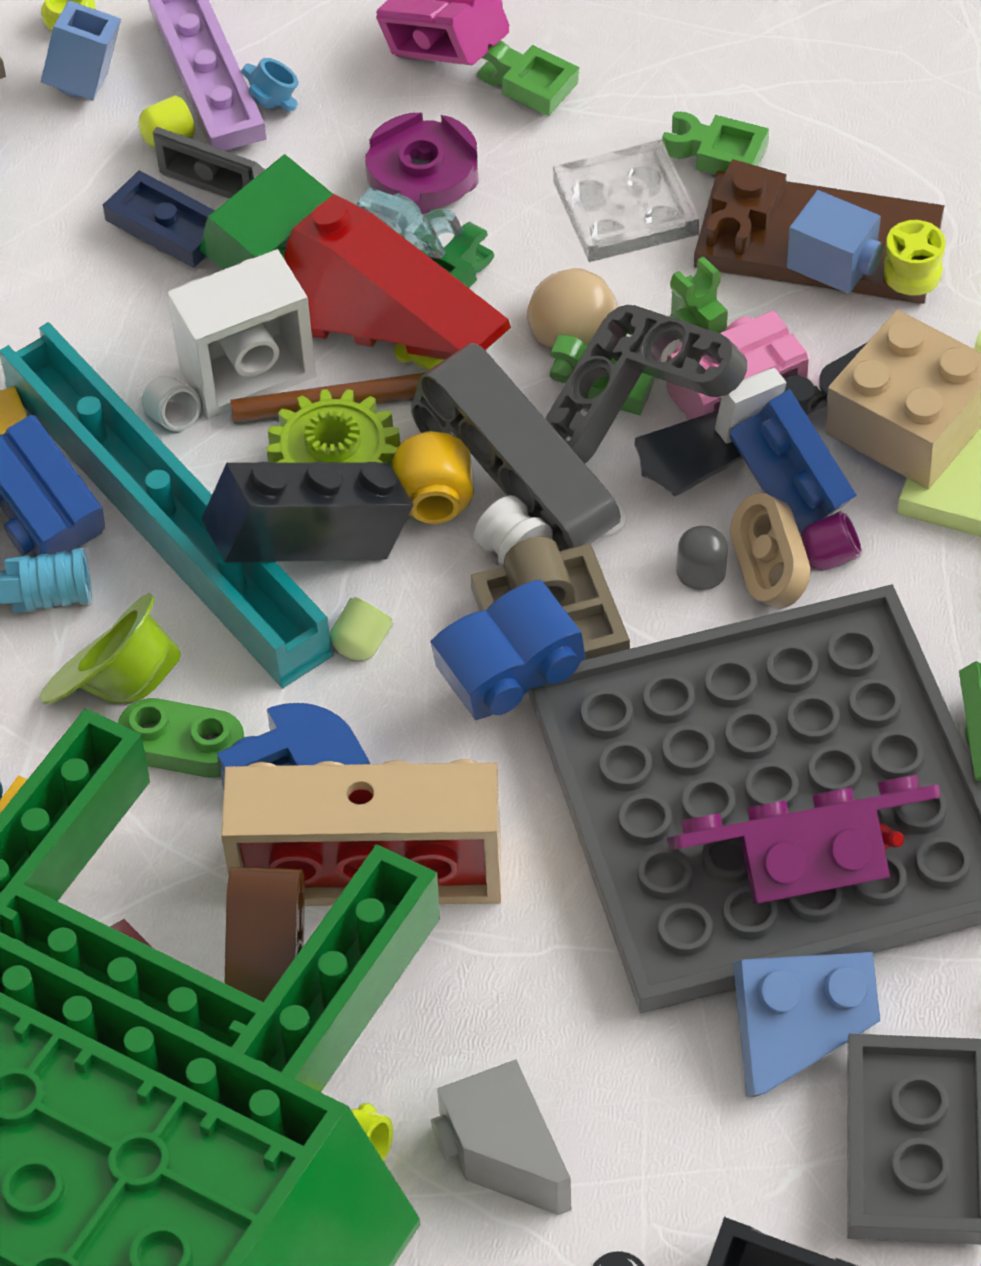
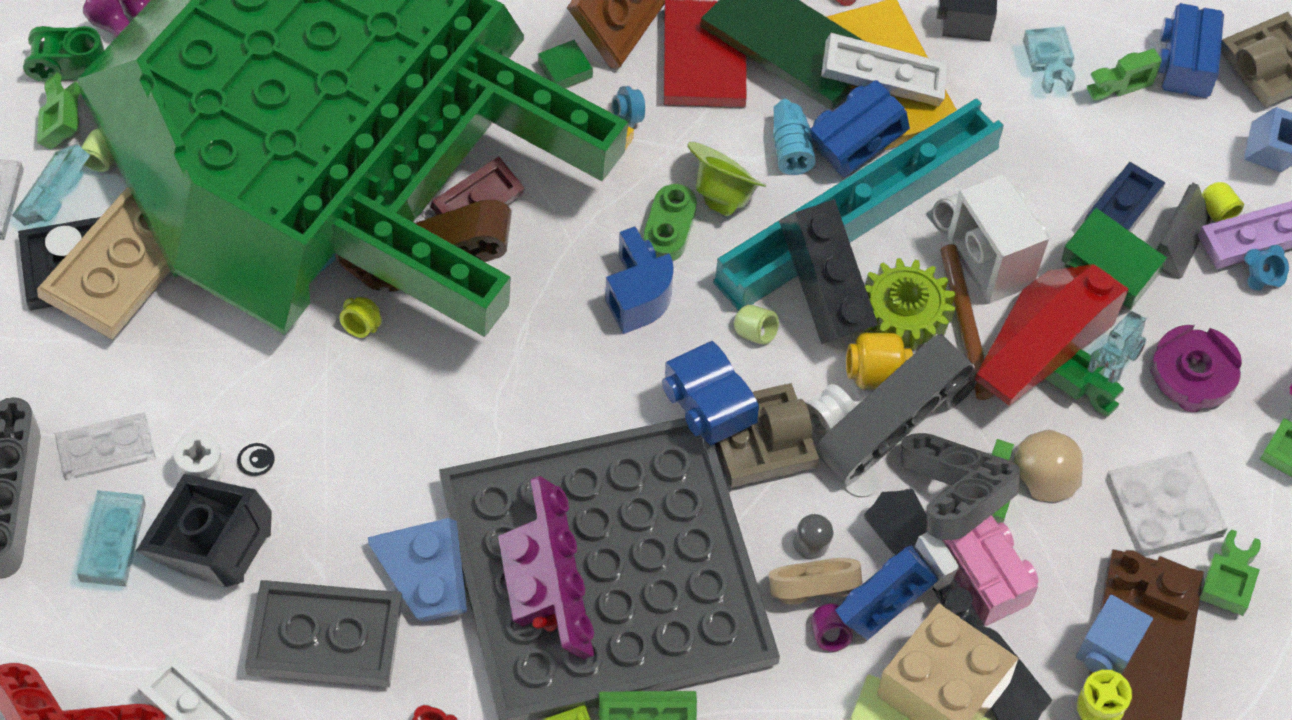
camera: 85 degrees right, 5 degrees up
(336, 813) = (569, 308): tan brick -> none
(502, 1138) = (347, 391): light grey slope -> none
(696, 298) = (1044, 537): bright green plate -> none

